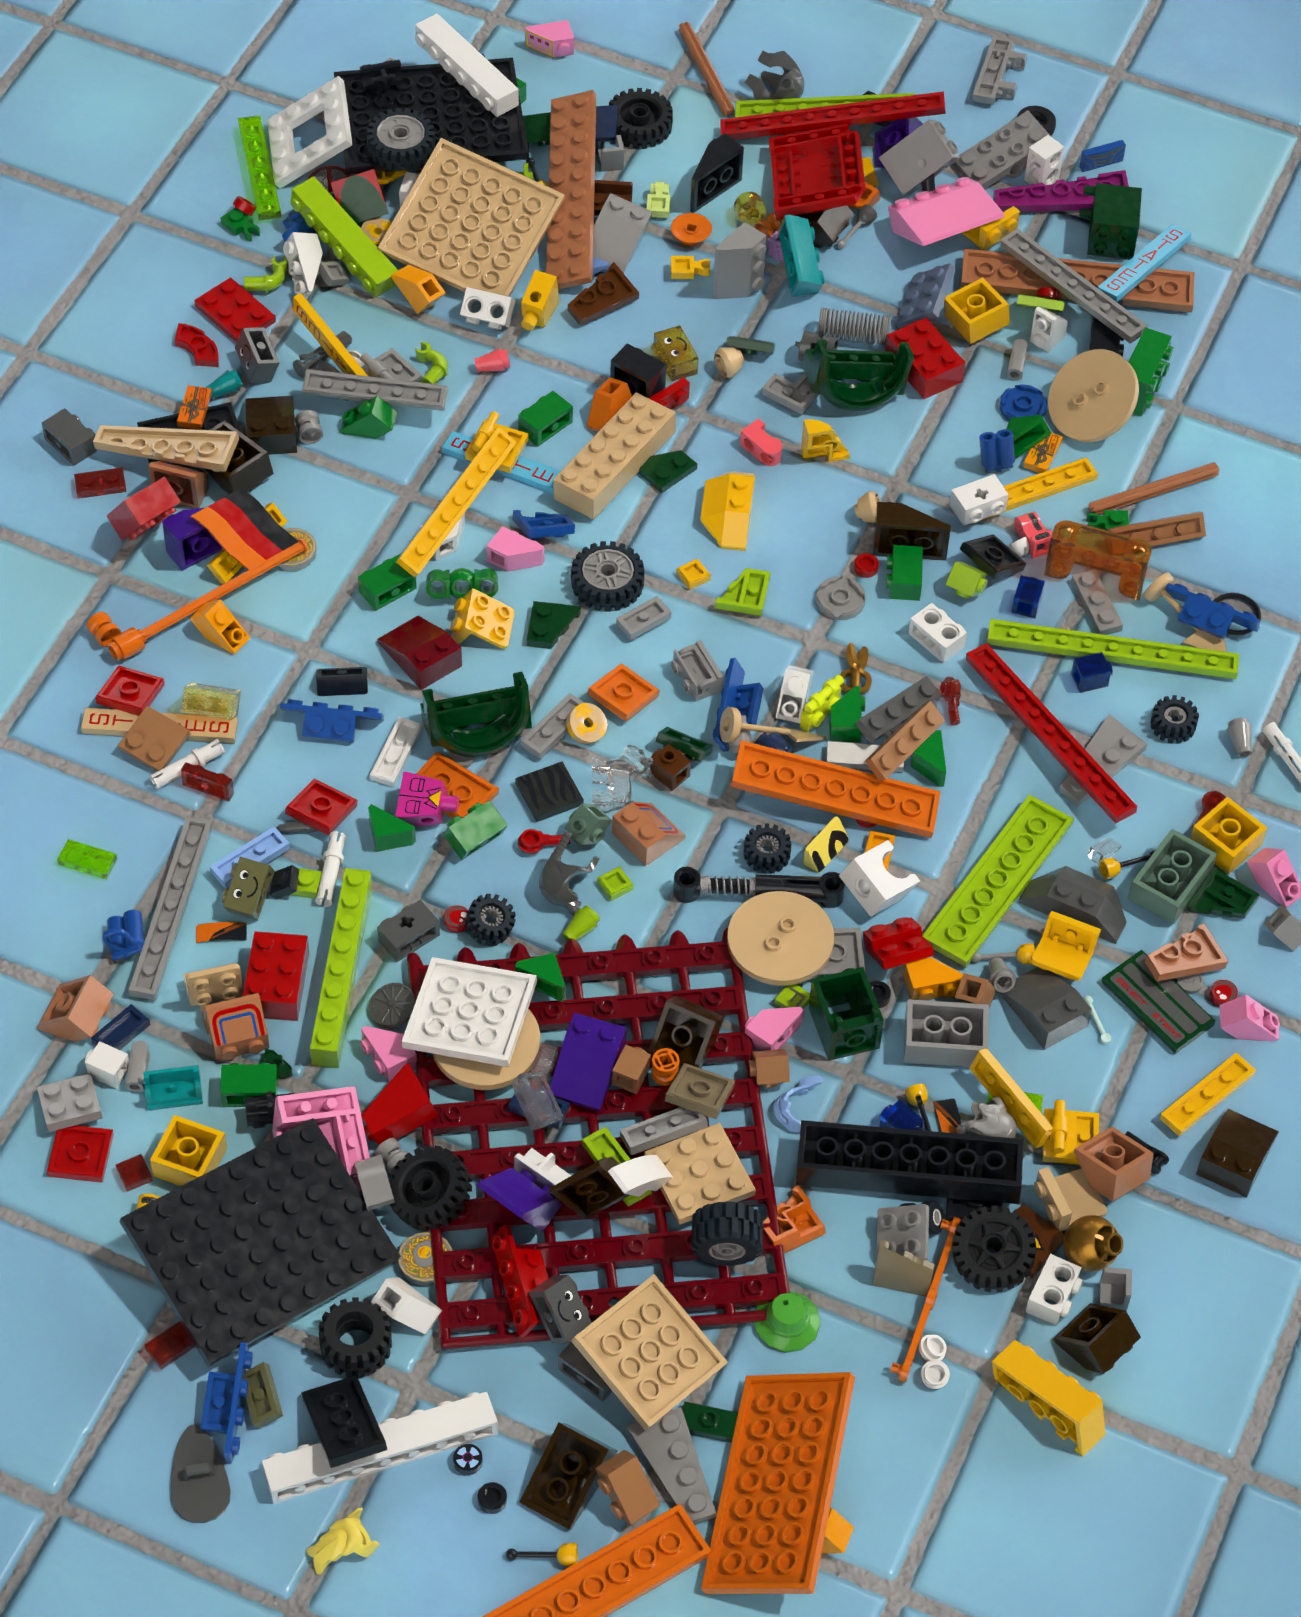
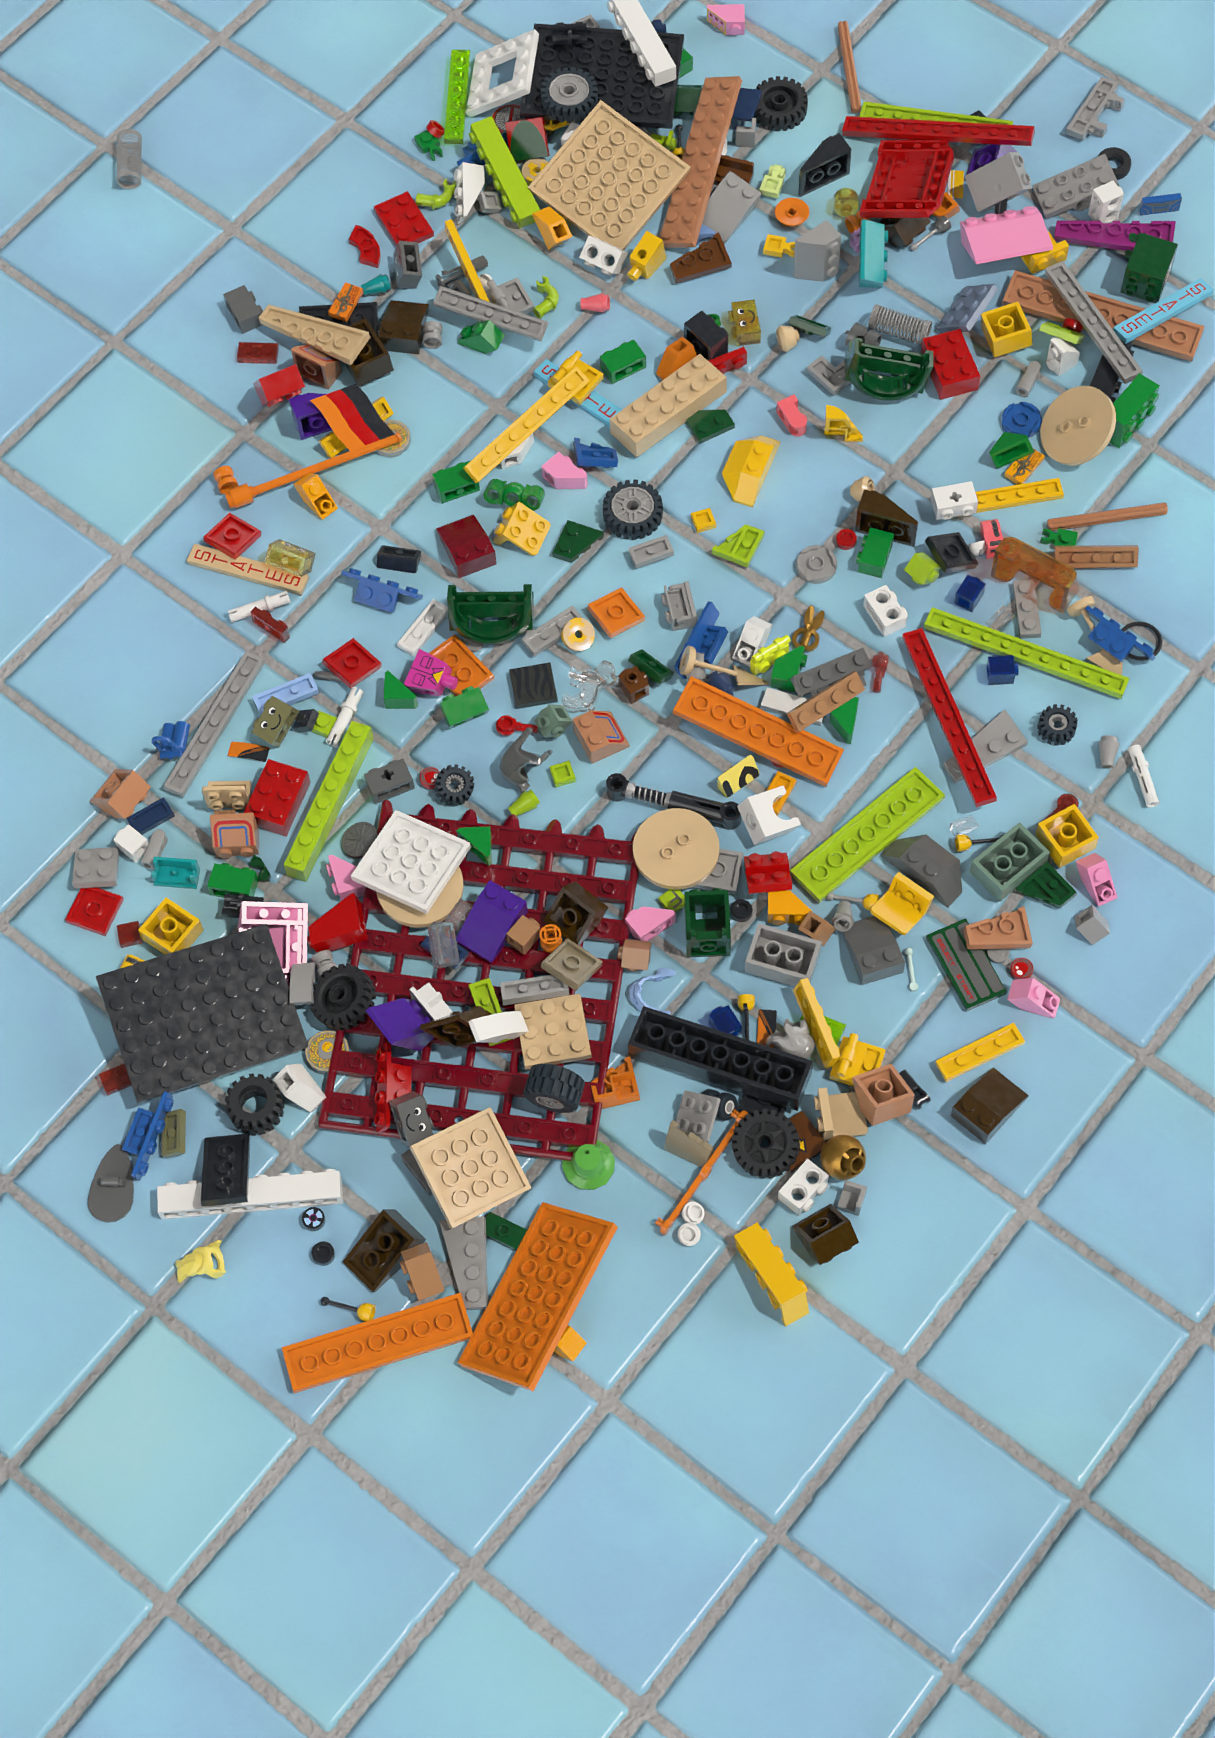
camera: 20 degrees right, 10 degrees up
(87, 859) = (163, 670): clear neon green plate -> none
(154, 739) = (239, 581): medium nougat plate -> none
(766, 836) = (701, 768): black bush -> none
(785, 86) = (911, 93): dark grey piece -> none
(997, 450) = (982, 459): blue piece -> none

